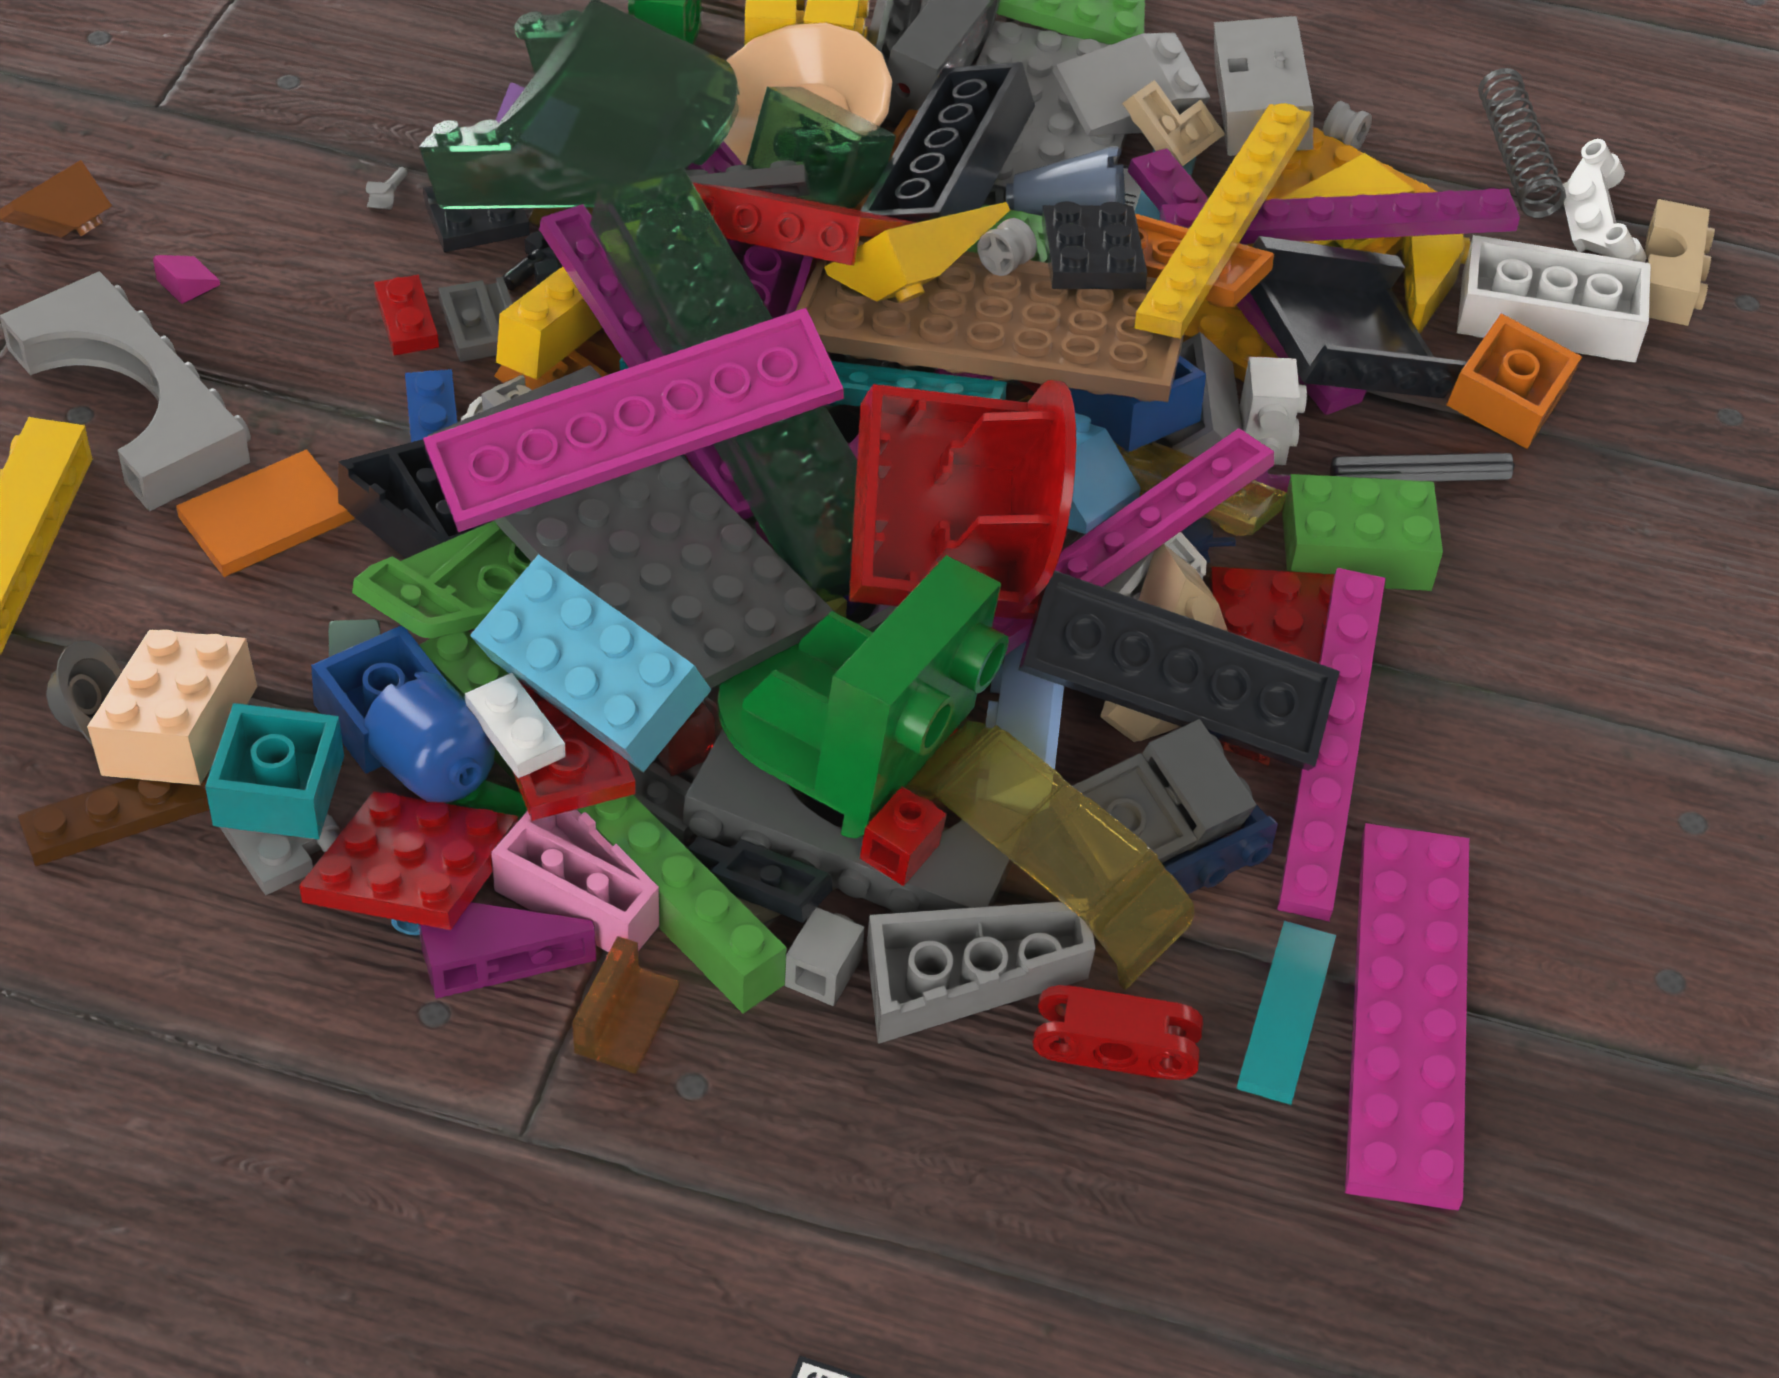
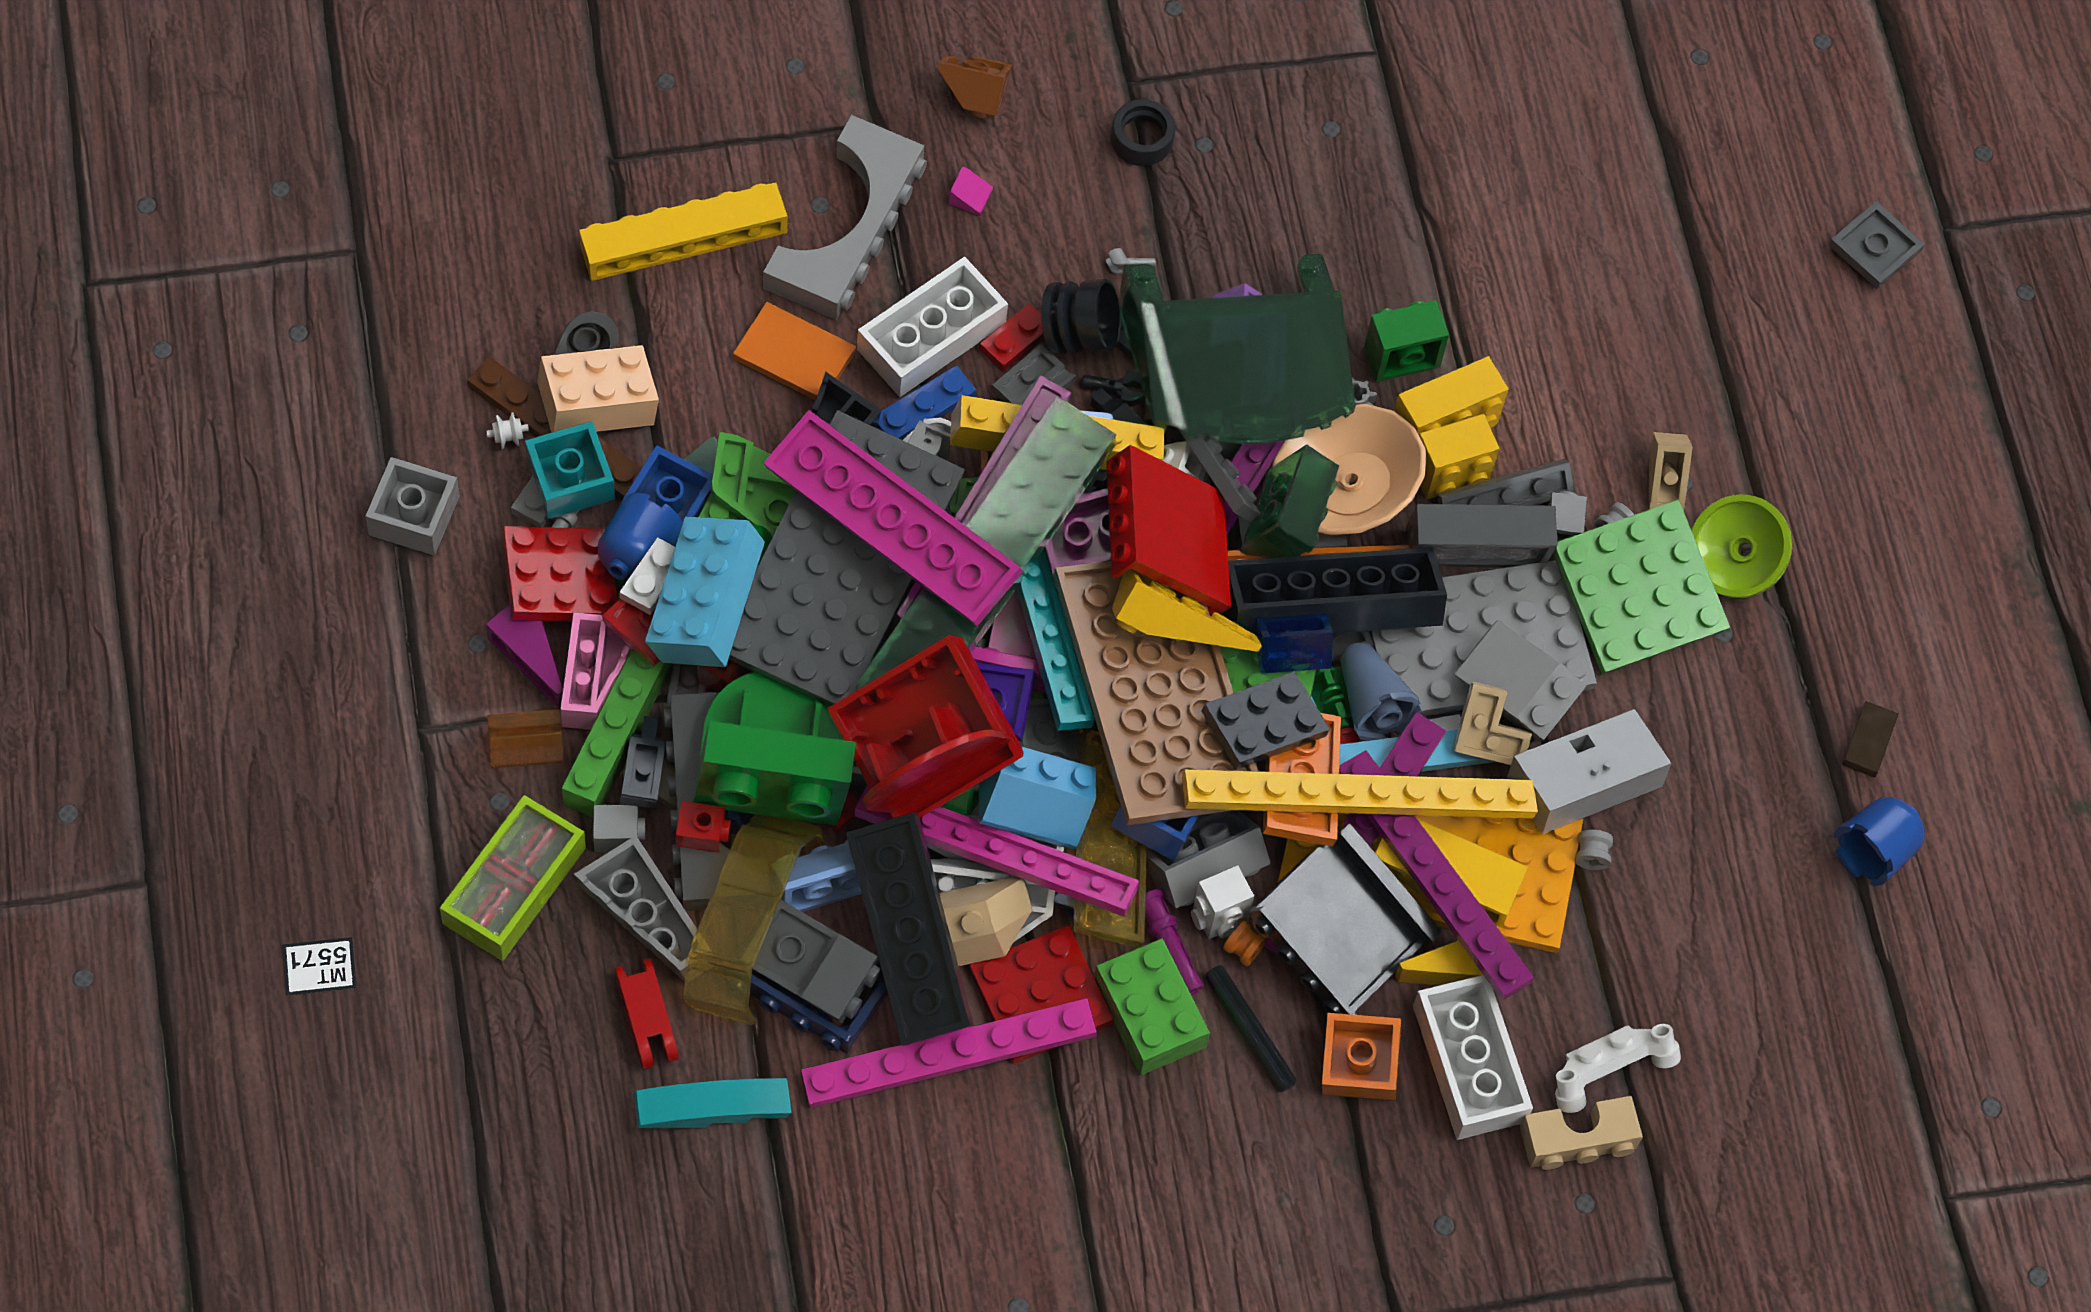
camera: 60 degrees right, 15 degrees up
(146, 838) = (507, 430): none -> white wheel
(183, 984) = (412, 506): none -> light grey brick
(234, 89) = (1149, 111): none -> black tyre
(343, 364) = (932, 326): none -> white brick
(442, 225) = (1081, 316): none -> black wheel
(839, 1098) = (513, 878): none -> brick
(999, 182) = (1294, 643): none -> clear blue brick
(1007, 247) = (1217, 665): light grey wheel -> none
(1321, 425) = (1245, 943): none -> orange wheel
(1409, 1019) = (760, 1177): dark pink plate -> none
(1520, 192) = (1712, 949): dark grey piece -> none

